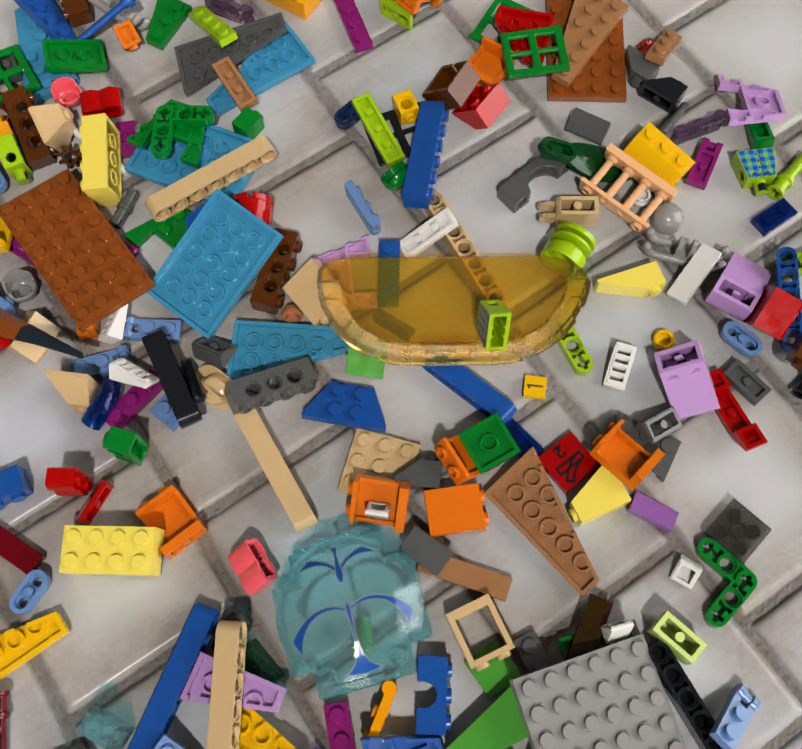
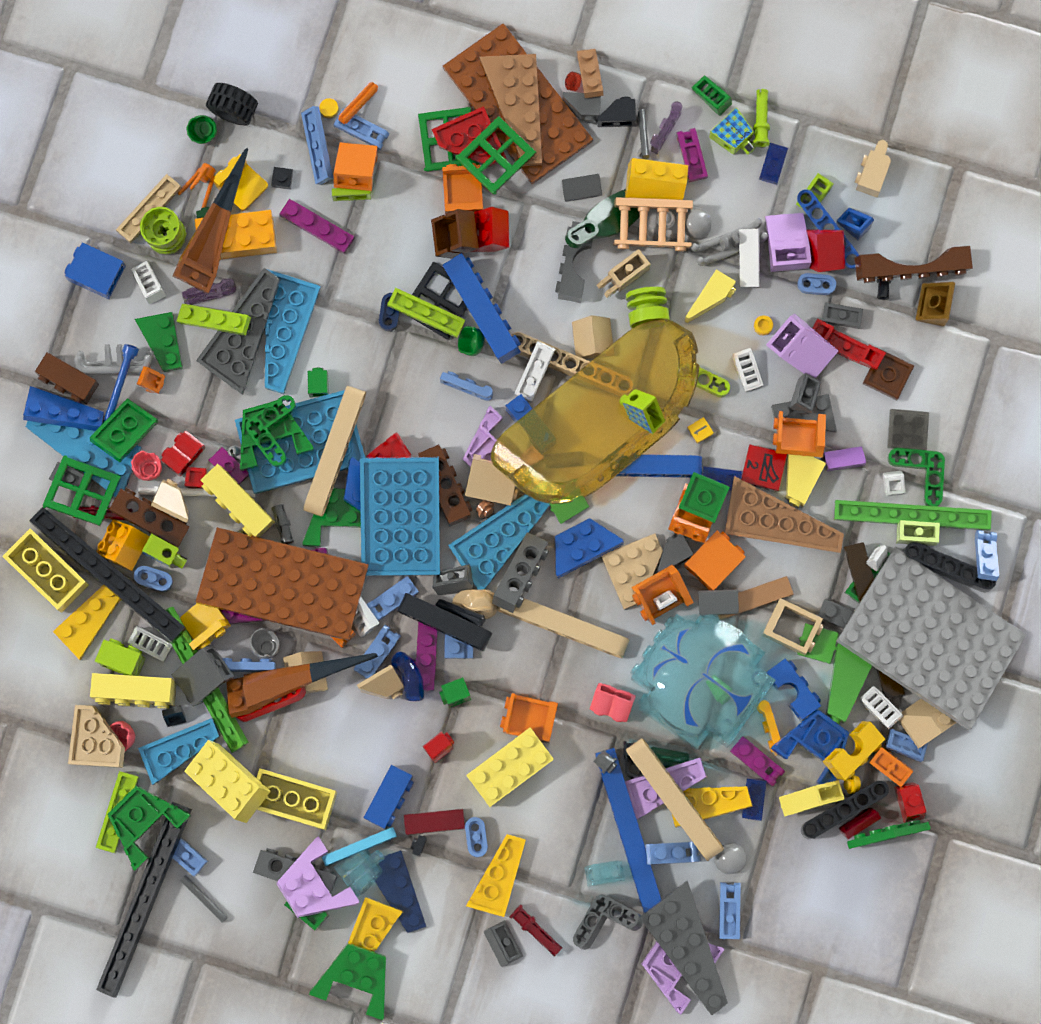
camera: 40 degrees left, 10 degrees up
(65, 151) = (201, 516): reddish brown gear -> none
(94, 502) = (462, 748): red slope -> none
(130, 373) = (414, 641): white slope -> none
(194, 617) = (605, 762): none -> dark grey hose
(234, 83) = (280, 358): medium nougat plate -> none
(405, 107) = (427, 270): yellow brick -> none
(503, 239) = (591, 336): none -> tan slope
(664, 599) = (892, 513): none -> bright green plate
(754, 468) = (889, 376): none -> reddish brown plate
(758, 103) = (697, 70): lavender wing -> none

